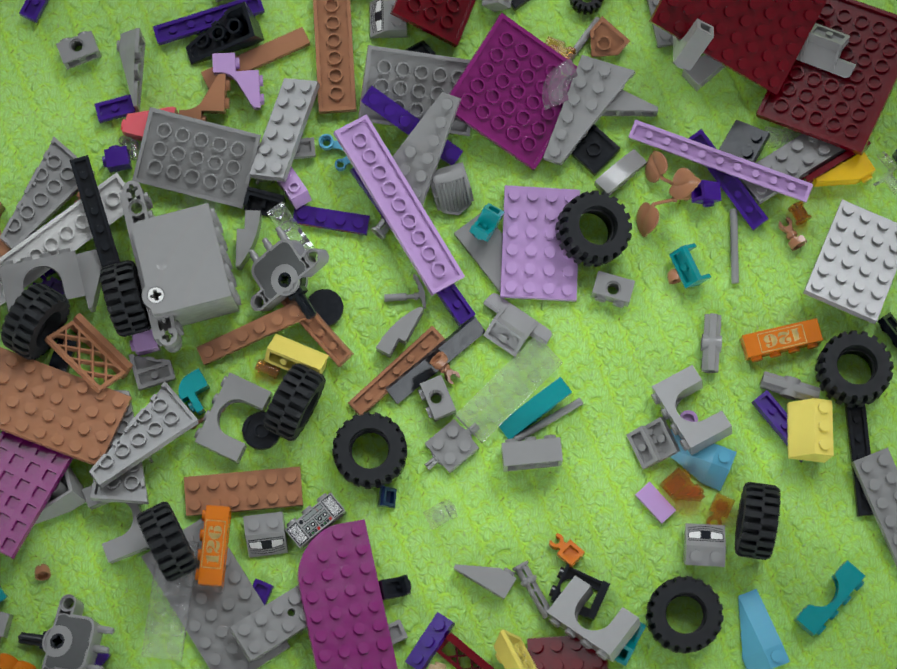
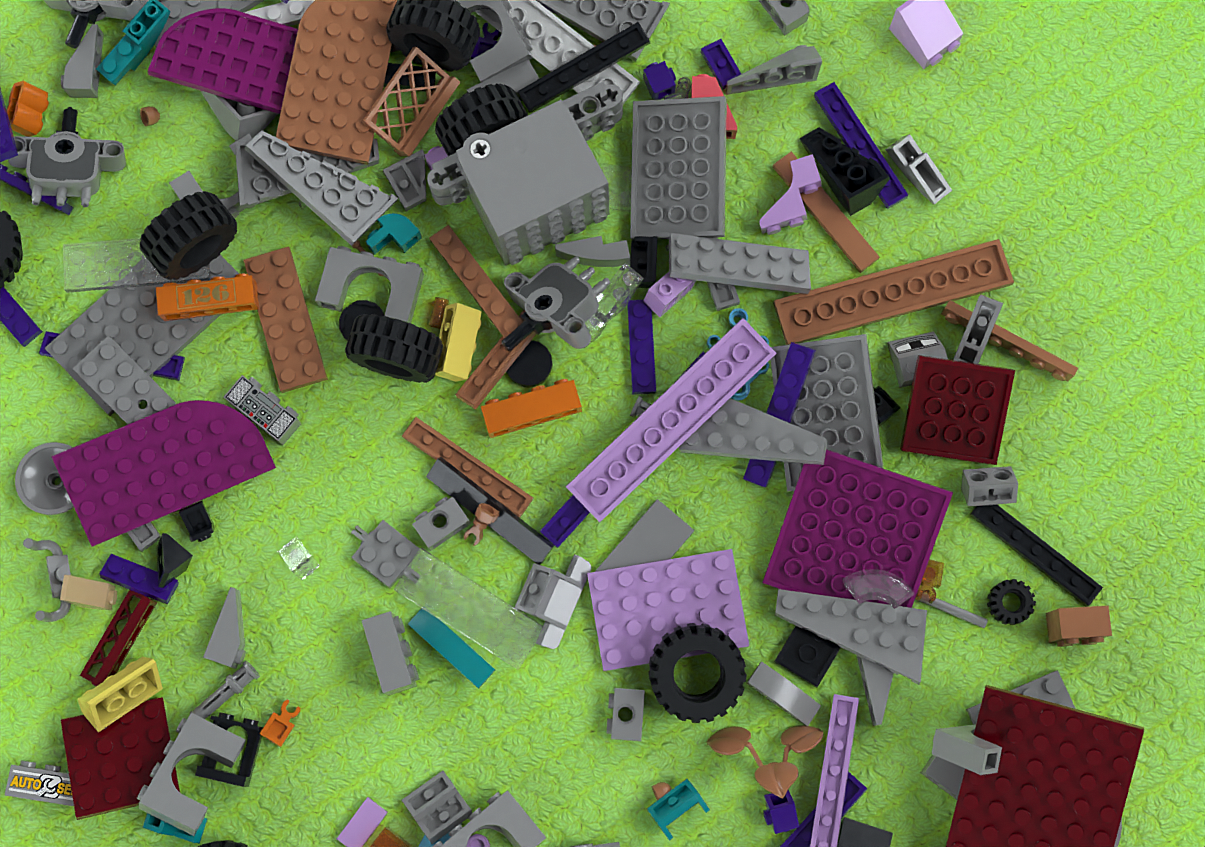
camera: 75 degrees right, 0 degrees up
(214, 101) = (757, 174): nougat arch -> none
(265, 534) = (237, 354): light grey slope -> none
(362, 312) = (531, 408): none -> orange brick
(370, 424) = (336, 432): black tyre -> none
(387, 497) = (308, 490): dark blue slope -> none
(399, 332) = (515, 459): light grey slope -> none
(403, 296) = (563, 456): light grey piece -> none
(420, 613) = (171, 560): none -> black slope
(451, 189) = (712, 484): light grey piece -> none
(487, 222) = (675, 535): teal brick -> none
(549, 419) = (442, 667): light grey bar -> none
(606, 39) = (959, 639): nougat plate -> none

